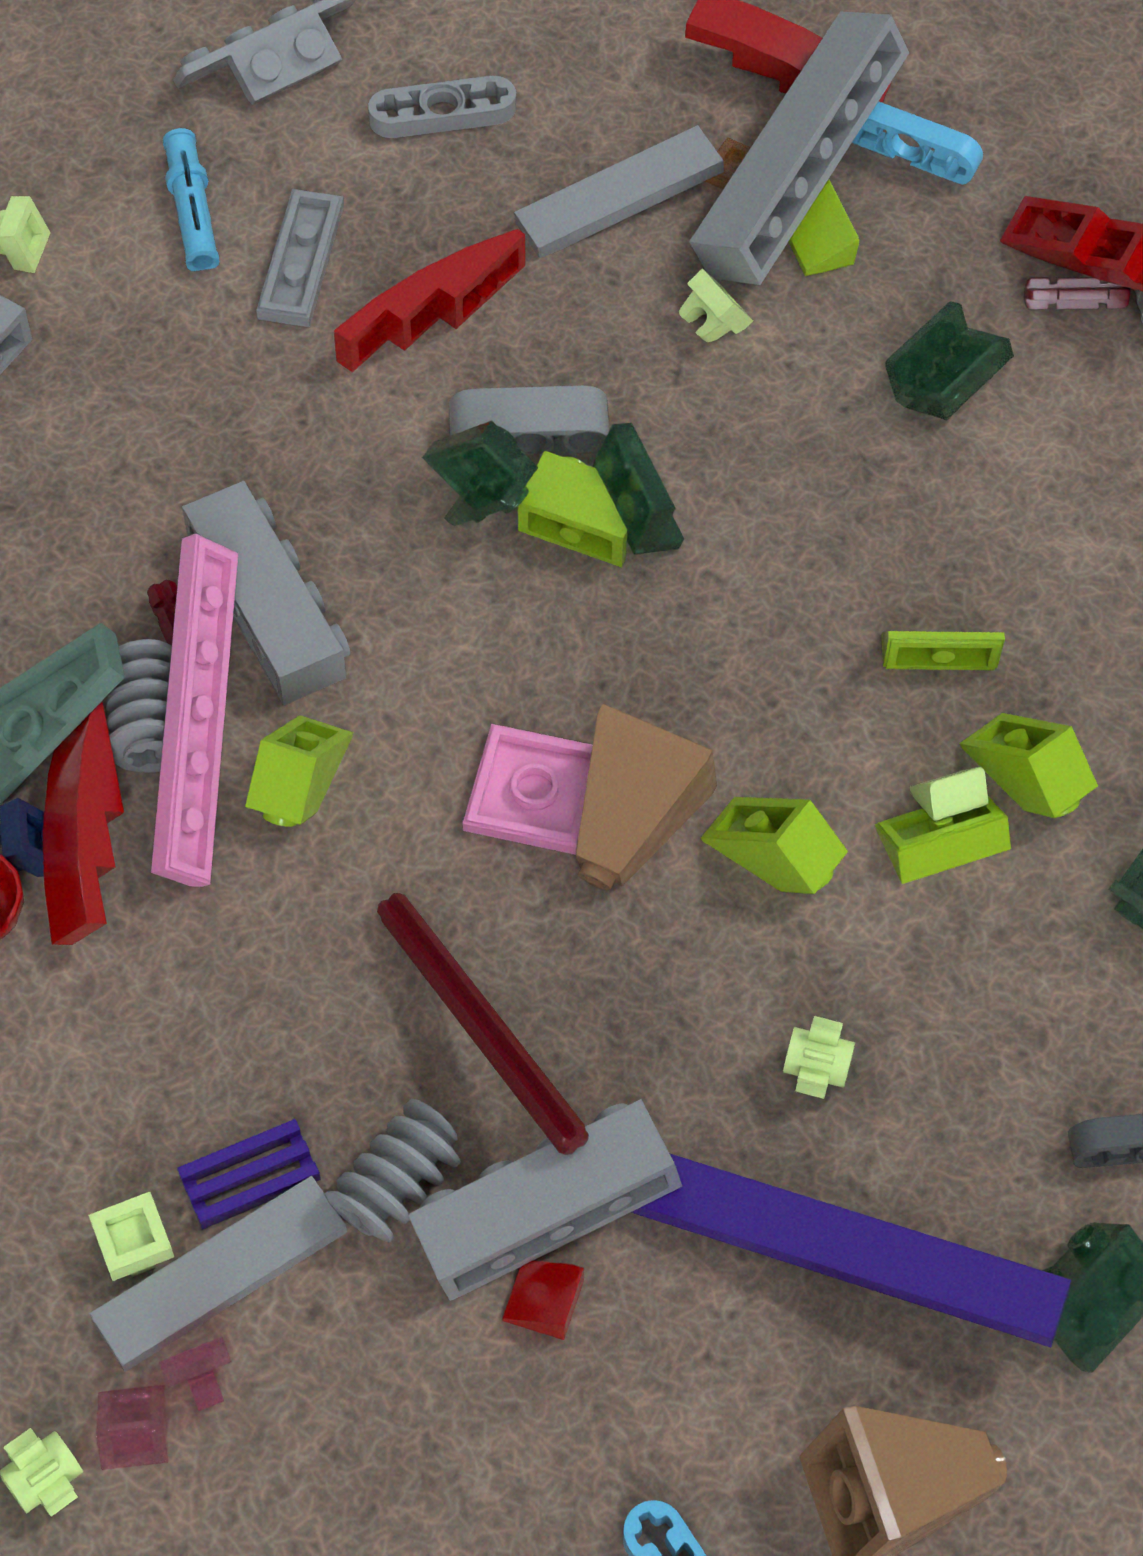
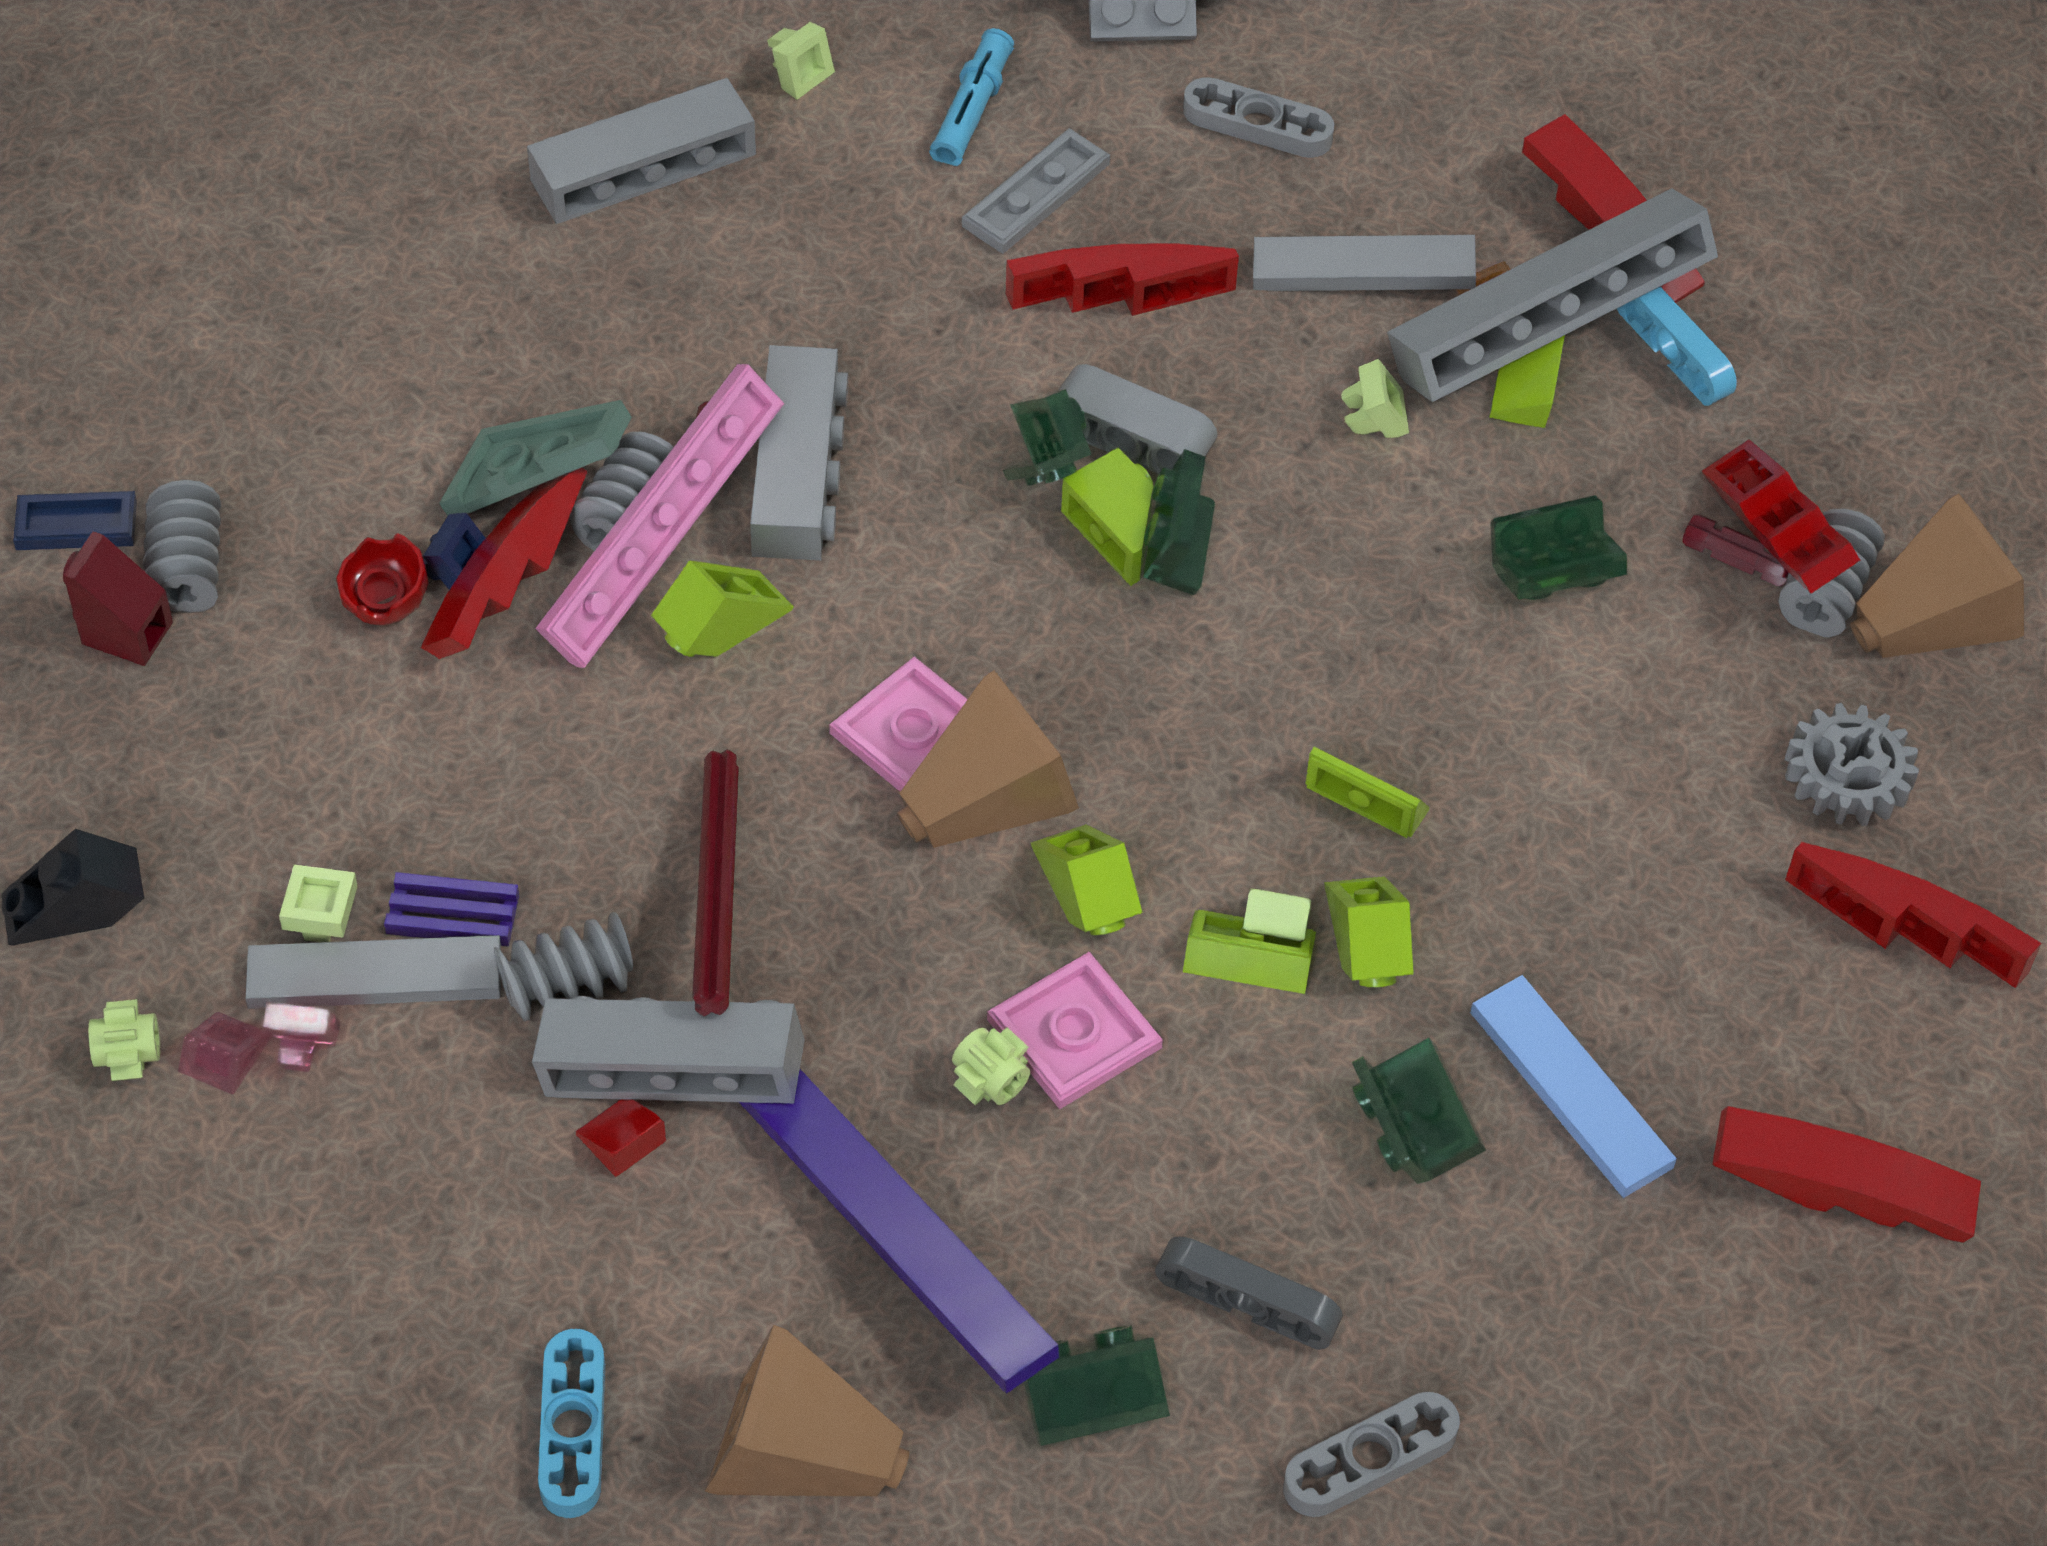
camera: 30 degrees right, 5 degrees down
(856, 980) = (1076, 1029): none -> bright pink tile

